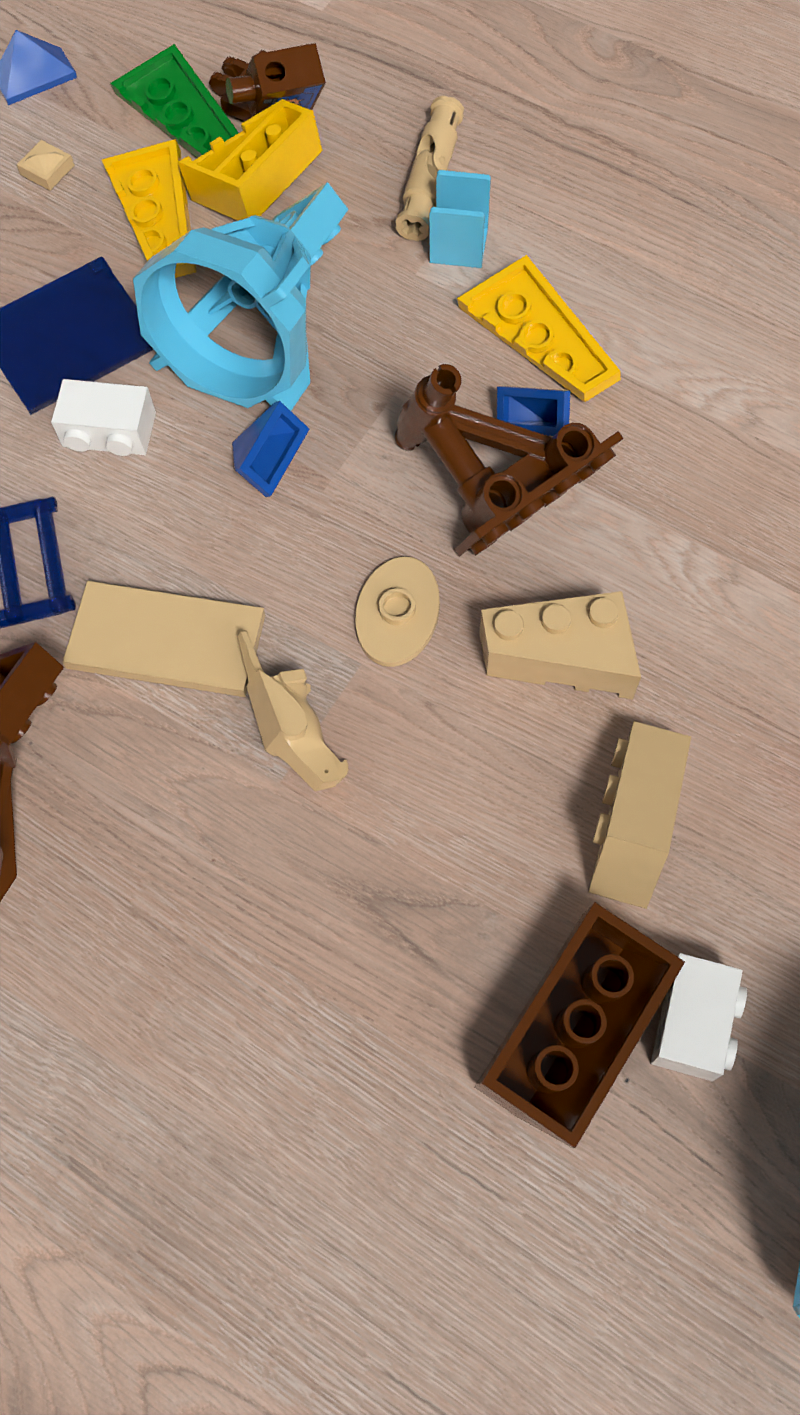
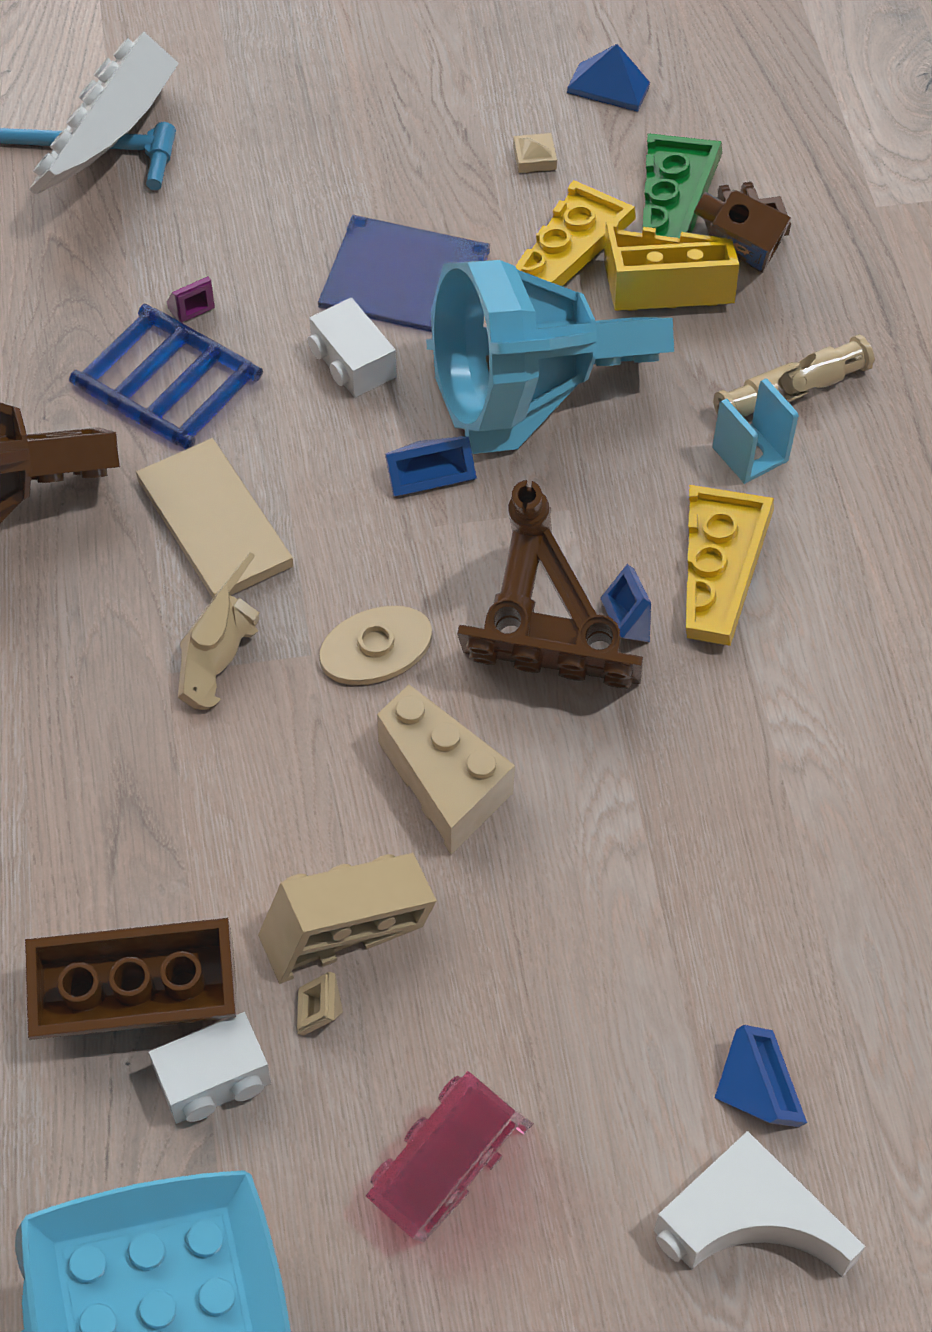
camera: 45 degrees right, 10 degrees down
(698, 893) = (318, 1003): none -> tan slope

